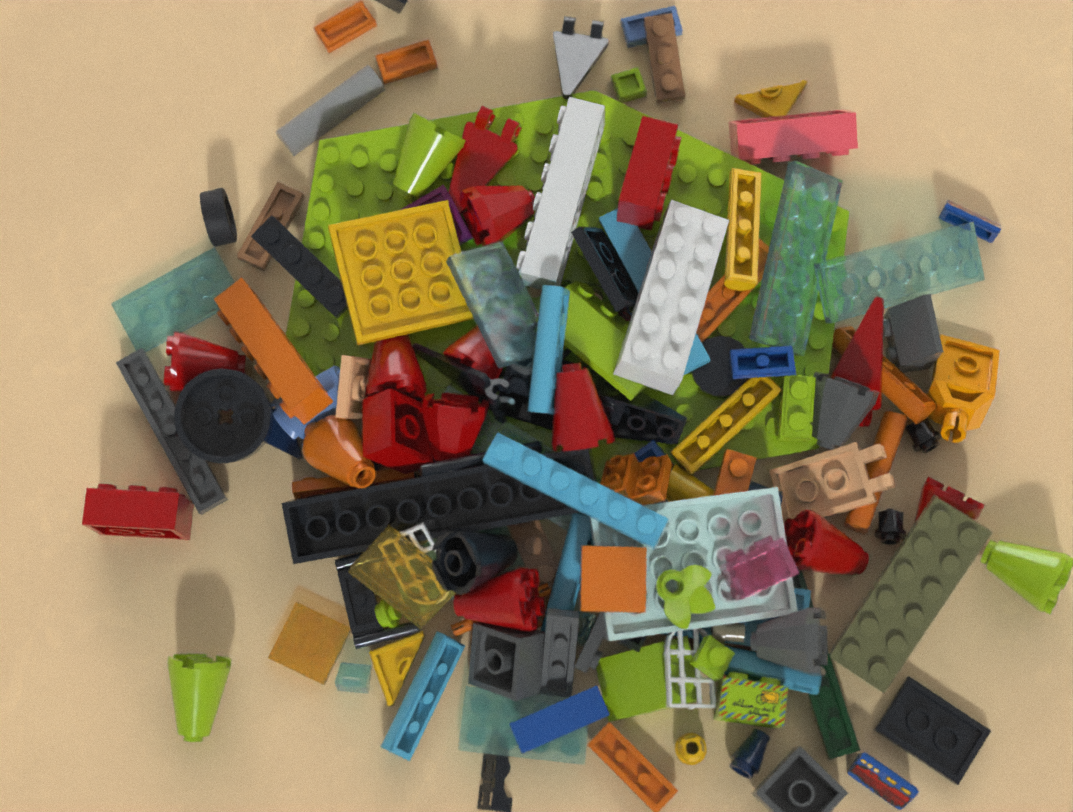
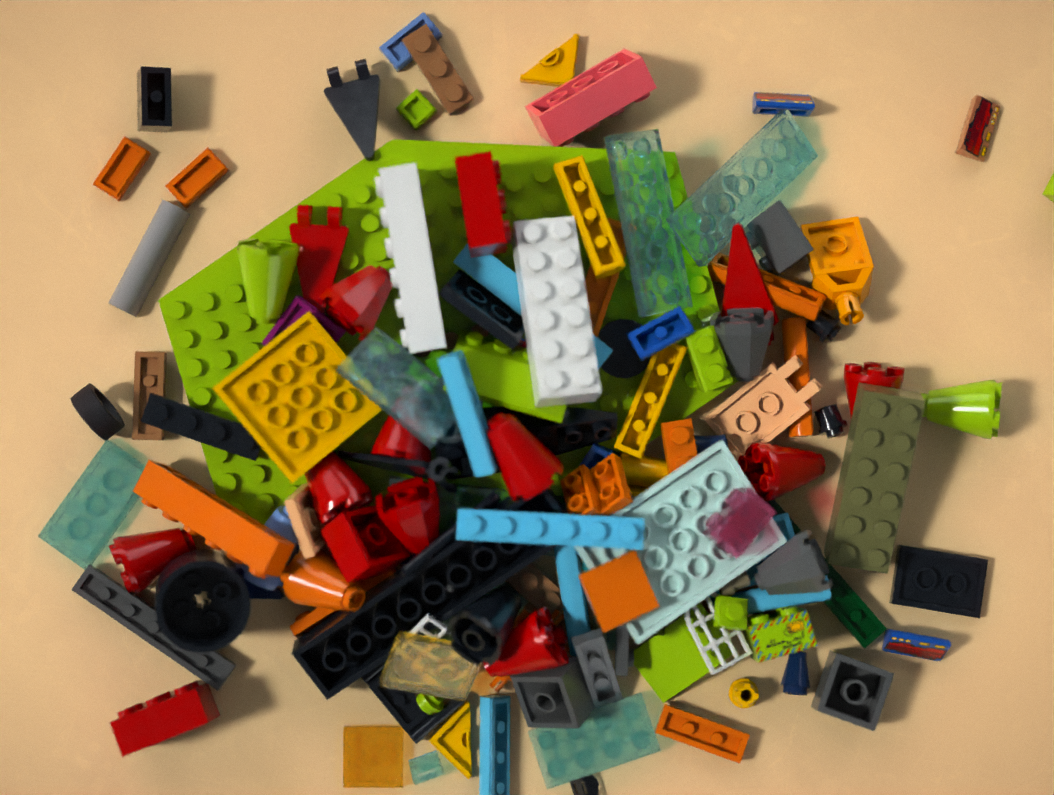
camera: 30 degrees left, 10 degrees up
(559, 719) = (622, 723): blue tile -> none
(688, 597) = (689, 573): lime plate -> none

